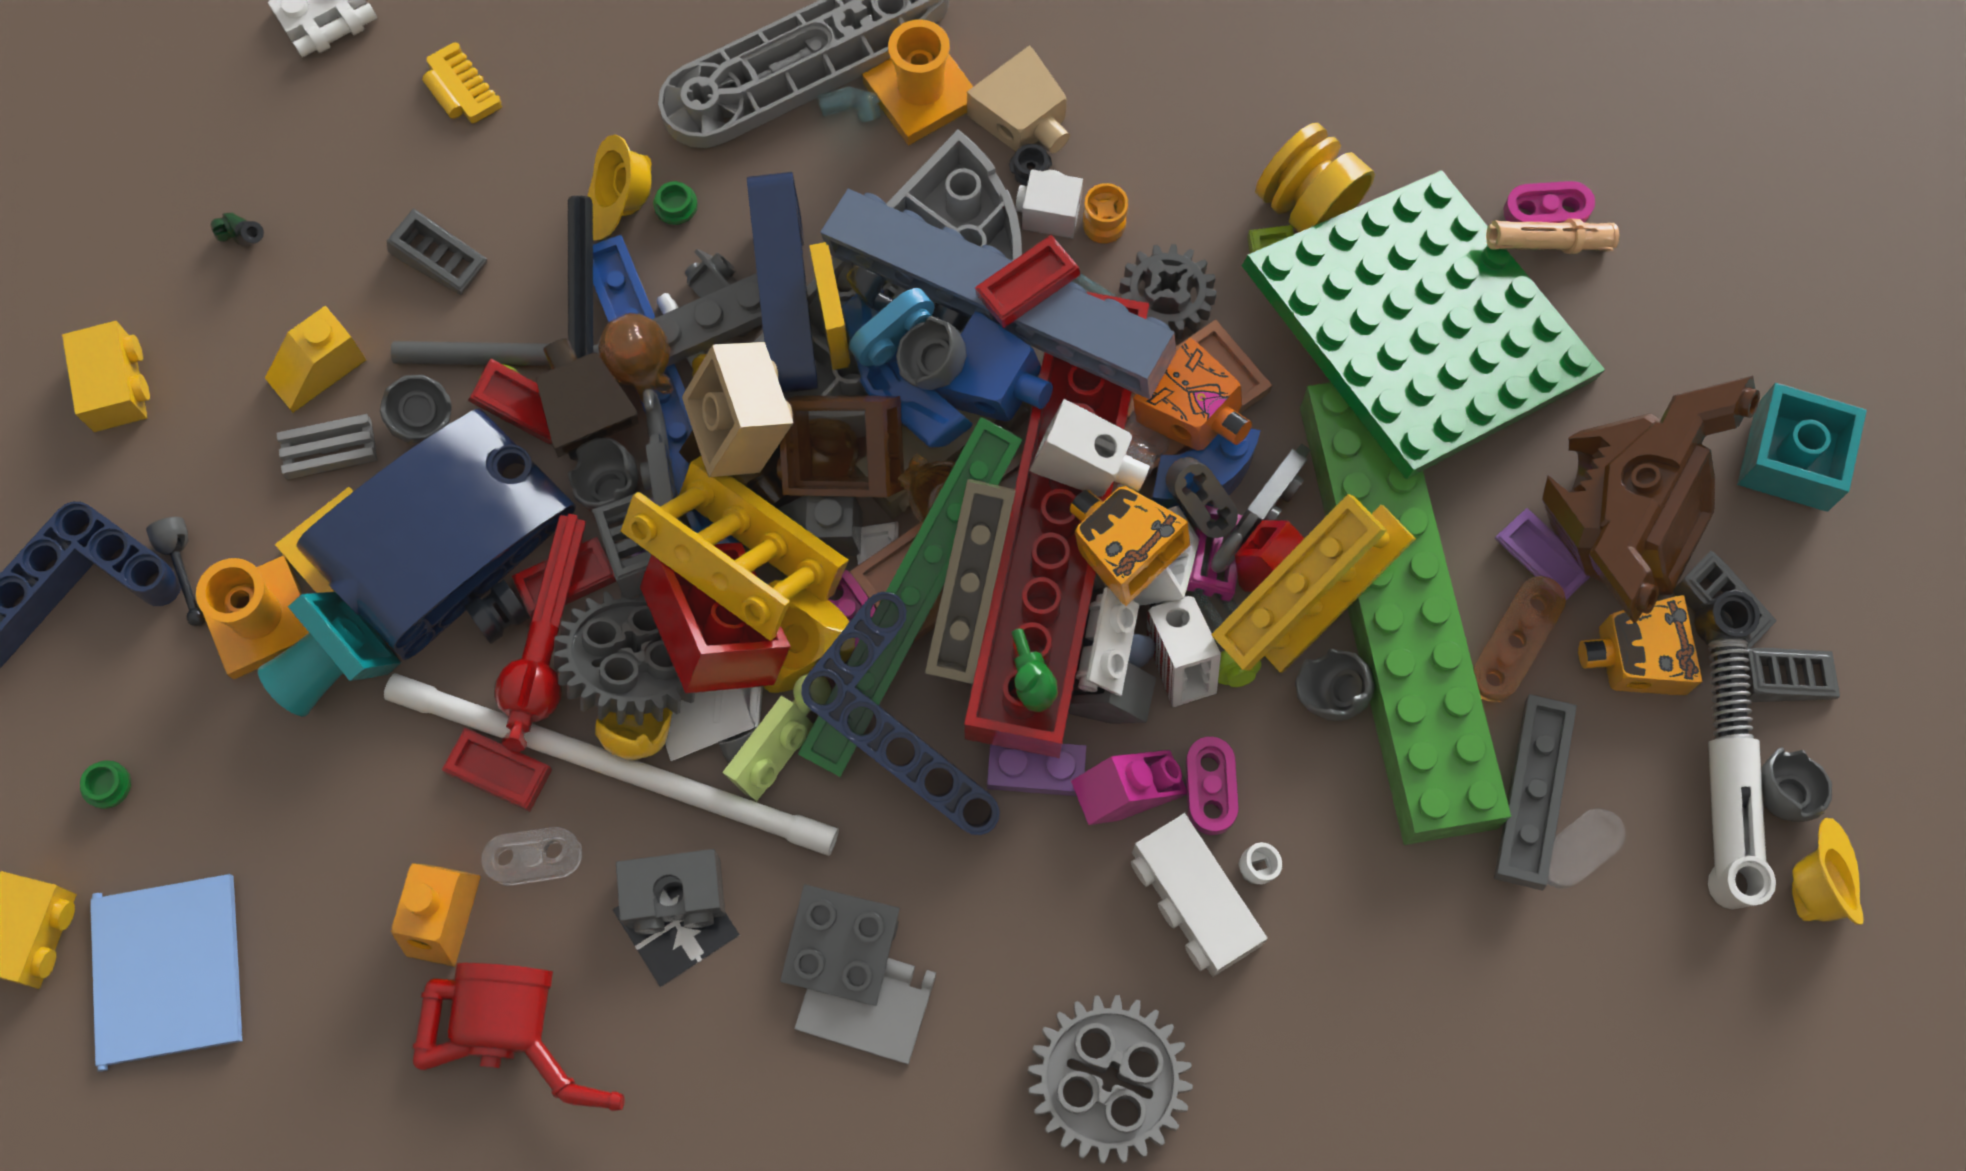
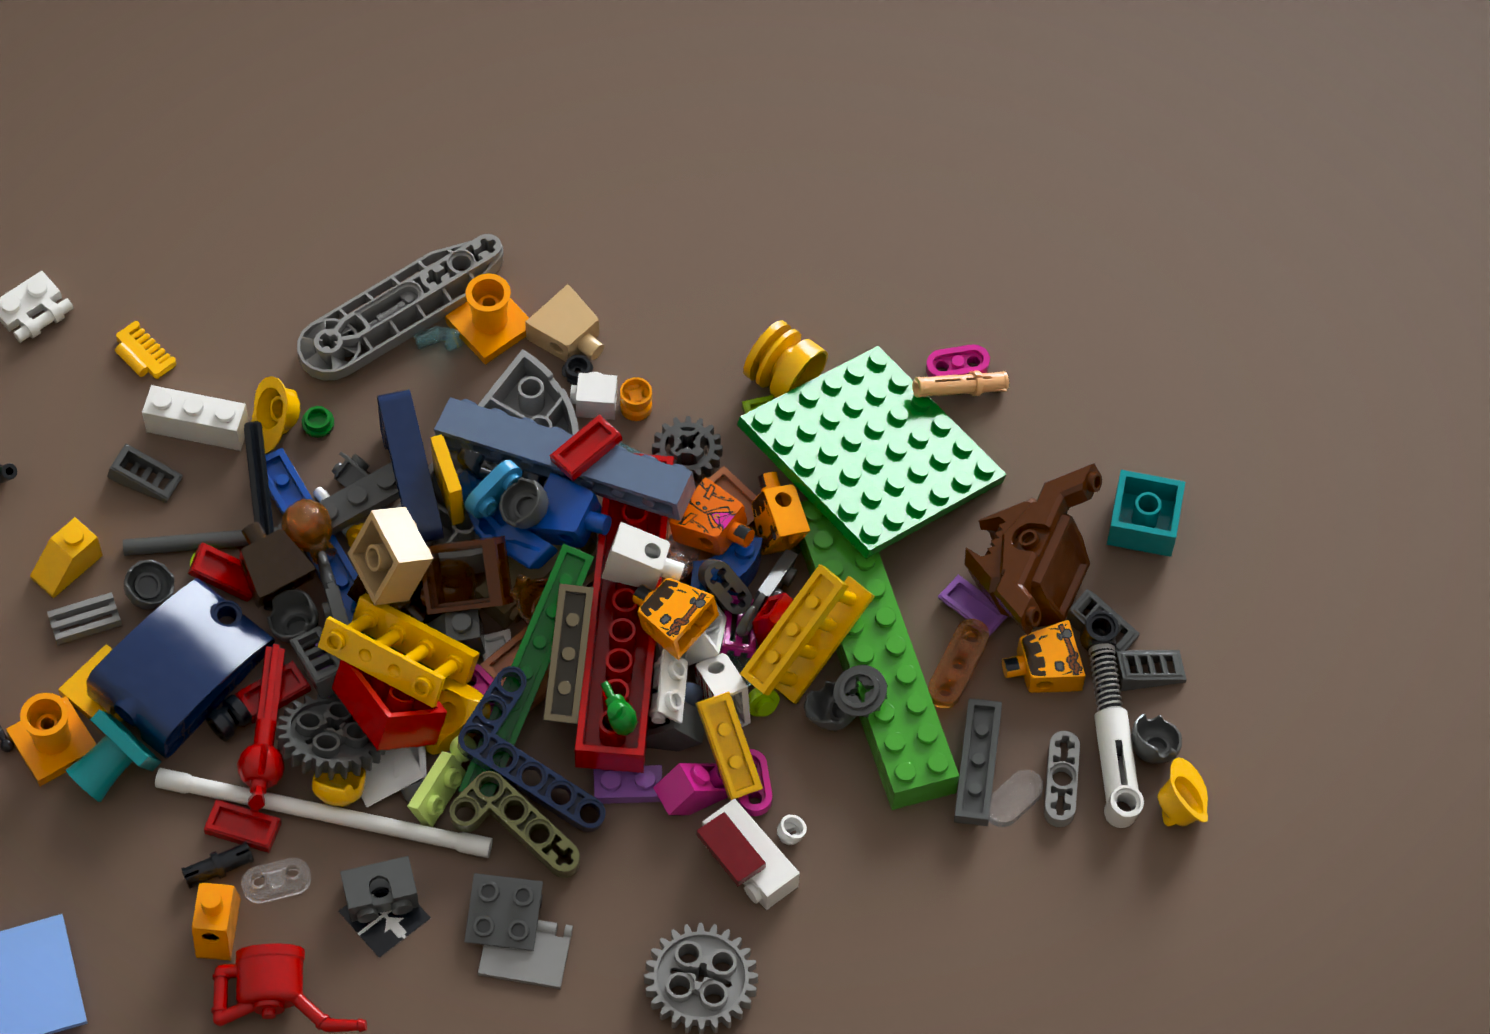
camera: 10 degrees left, 10 degrees down
(453, 825) = (217, 865): none -> black pin
(509, 180) = (195, 417): none -> white brick
(877, 824) = (520, 828): none -> olive beam
(1172, 893) = (731, 849): none -> dark red tile
(1185, 736) = (729, 745): none -> yellow tile
(1286, 399) = (778, 515): none -> light orange torso
(1362, 664) = (848, 685): none -> dark grey gear
(1659, 863) = (1054, 790): none -> light grey beam

